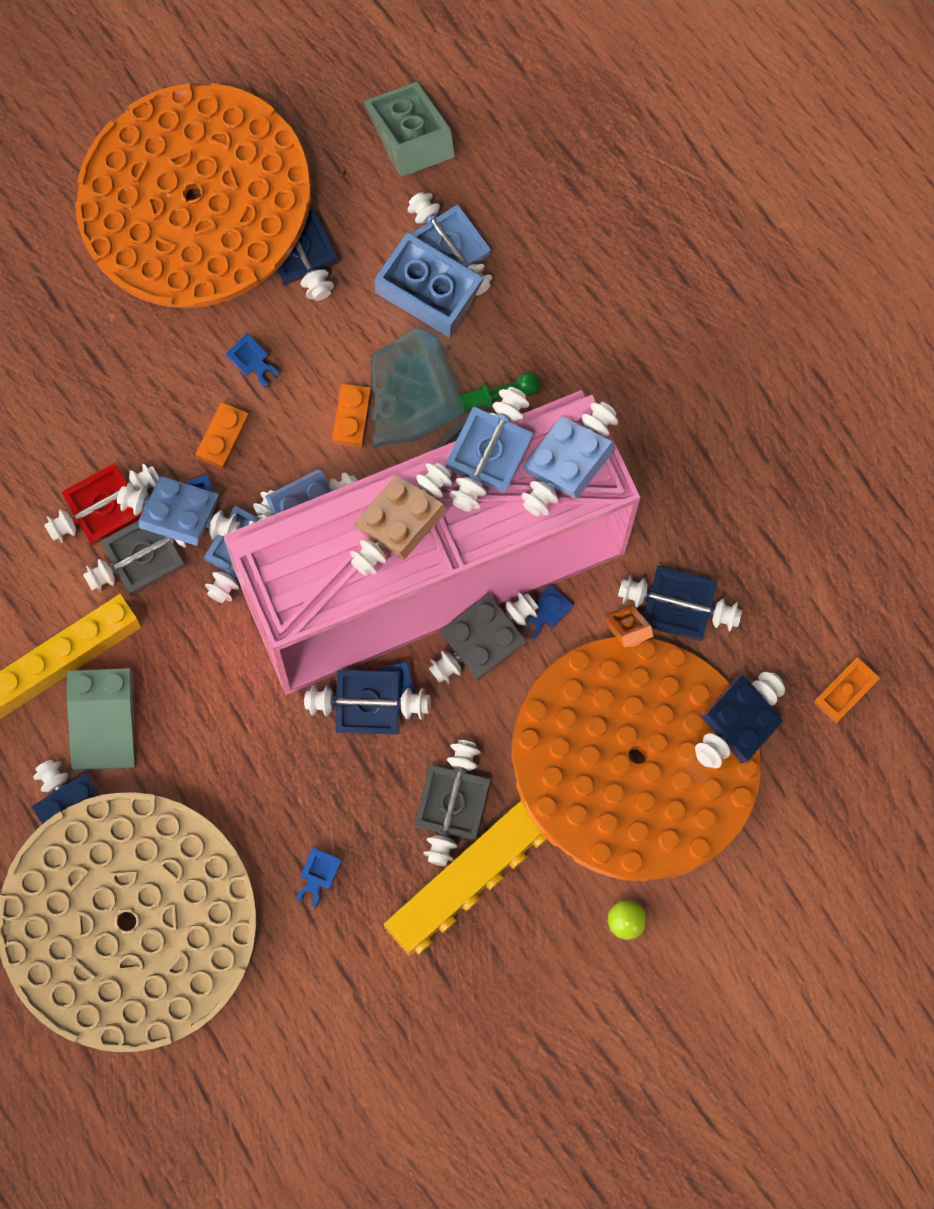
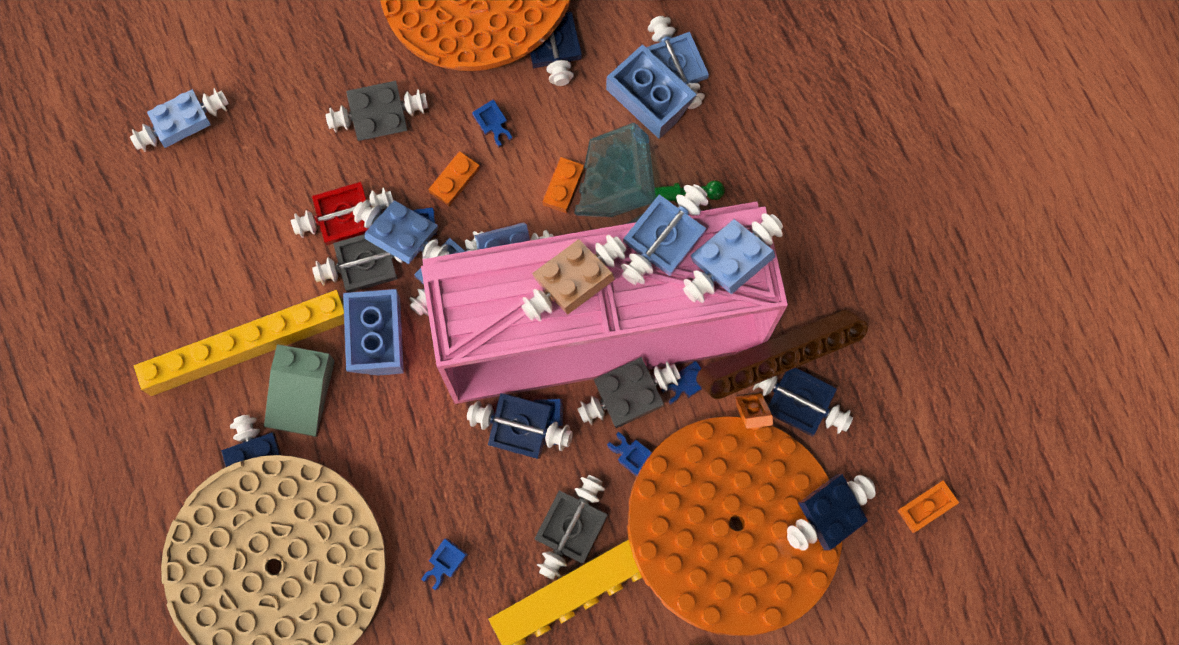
camera: 15 degrees right, 0 degrees up
(112, 375) = (376, 110): none -> dark grey plate
(174, 633) = (373, 332): none -> medium blue slope
(502, 708) = (632, 455): none -> blue plate
(646, 555) = (781, 354): none -> reddish brown beam

